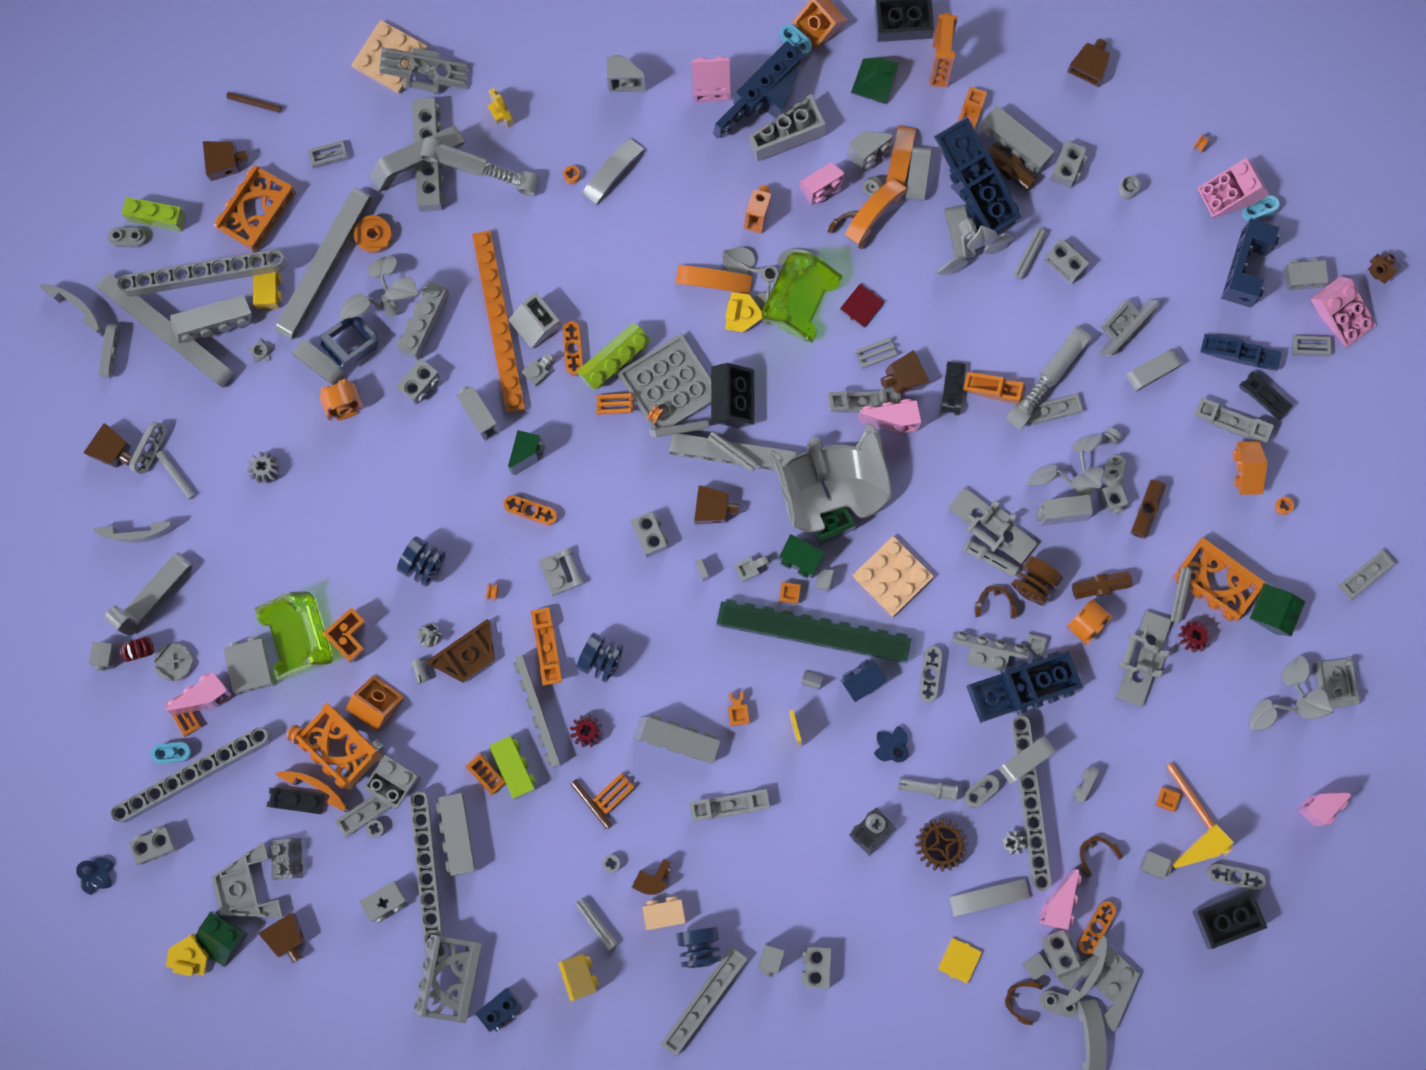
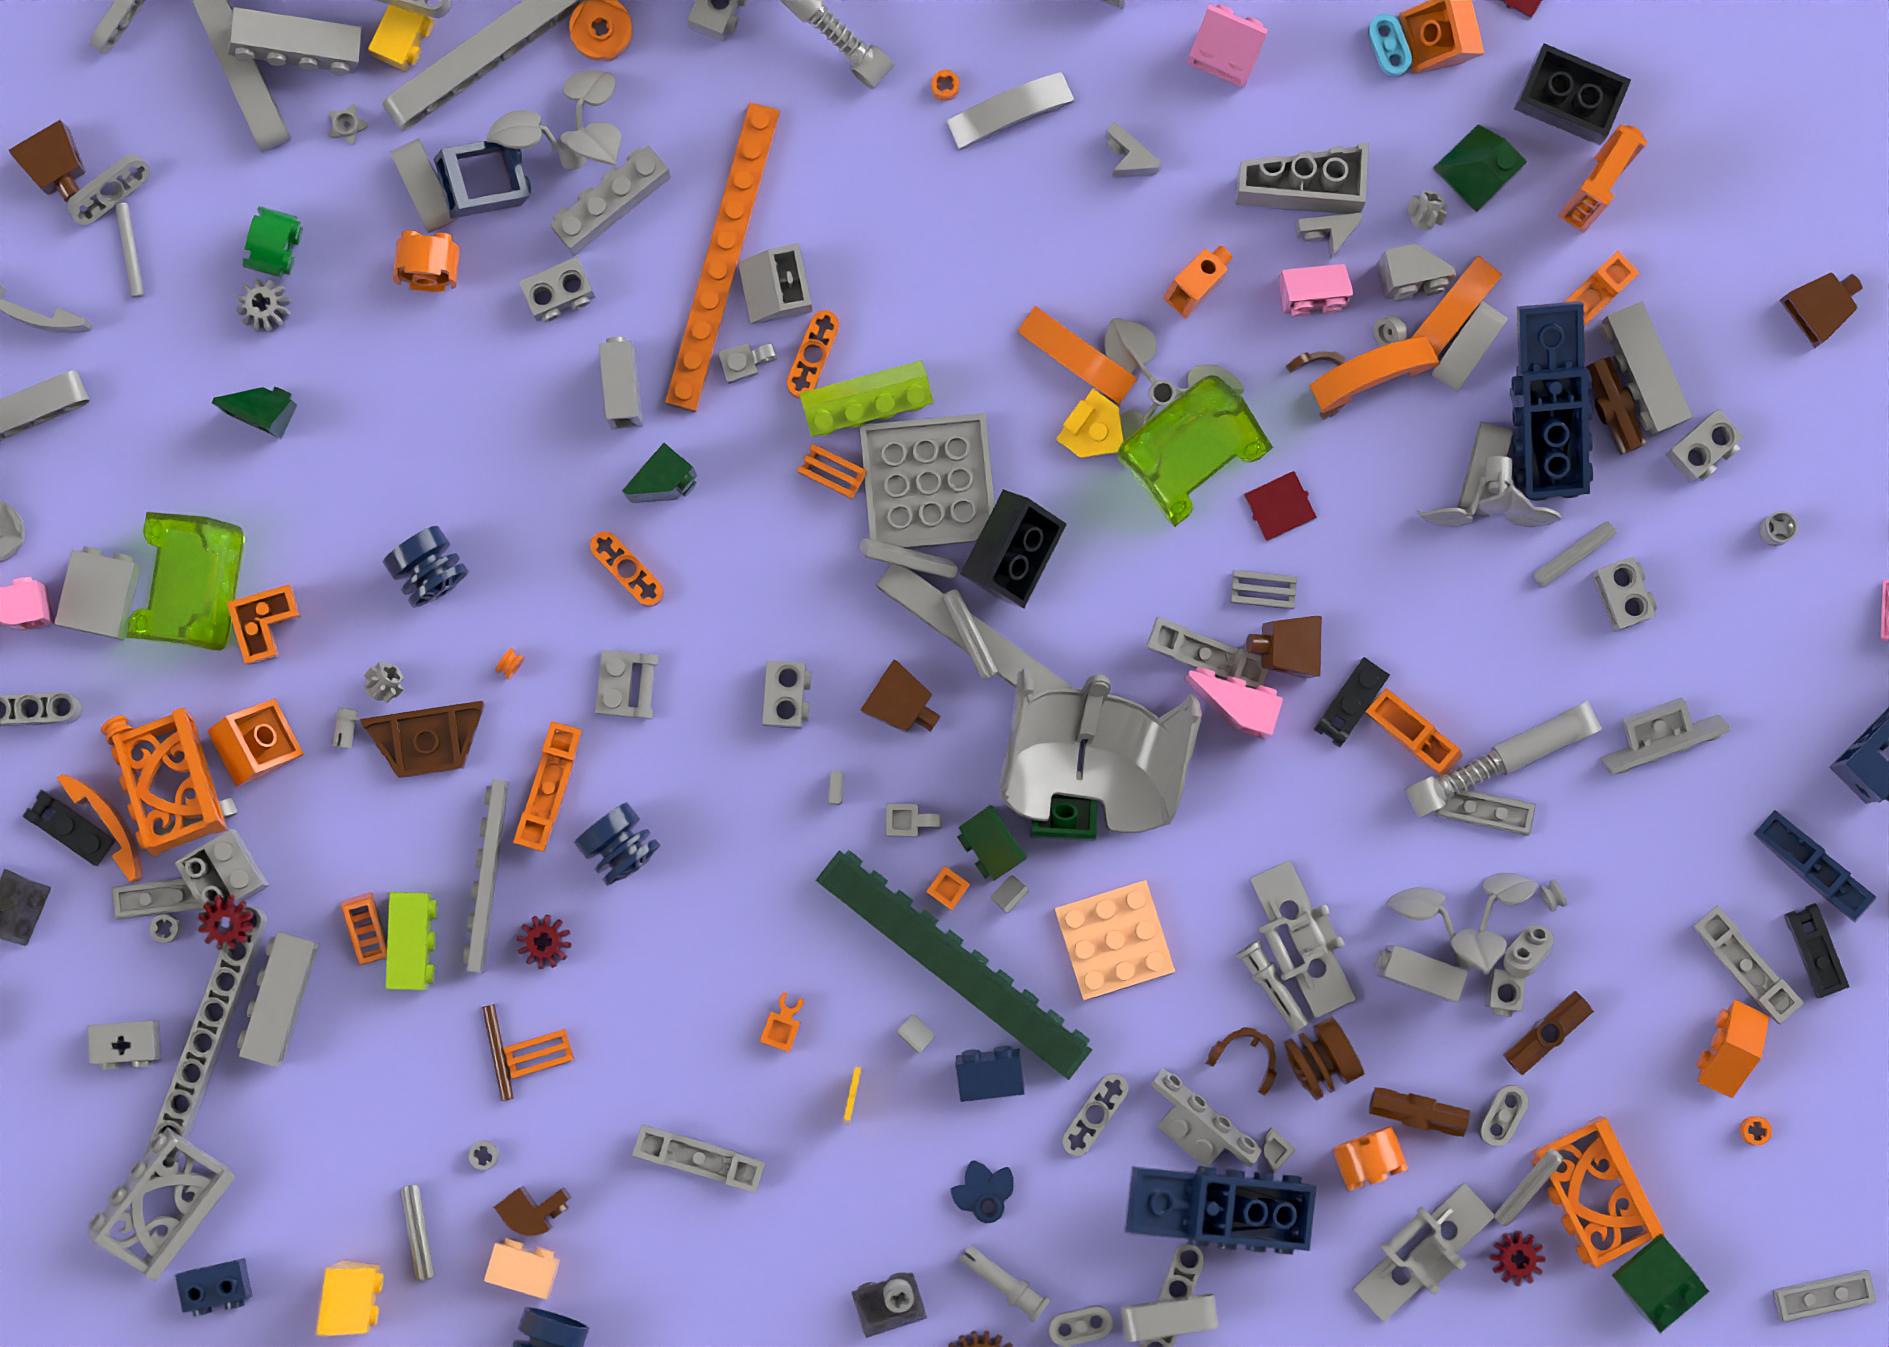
camera: 20 degrees right, 5 degrees up
(251, 431) = (271, 242): none -> green brick
(288, 523) = (259, 408): none -> dark green slope
(413, 808) = (237, 924): none -> dark red gear
(655, 414) = (884, 518): orange bush -> none
(677, 739) = (669, 1022): light grey wedge -> none
(693, 162) = (1138, 158): none -> light grey slope
(765, 88) = (1306, 99): dark blue wedge -> none
(816, 147) = (1335, 226): none -> light grey slope
(859, 114) = (1427, 210): none -> light grey gear
(1147, 565) = (1505, 1116): none -> light grey plate
(1154, 370) = (1668, 827): light grey beam -> none

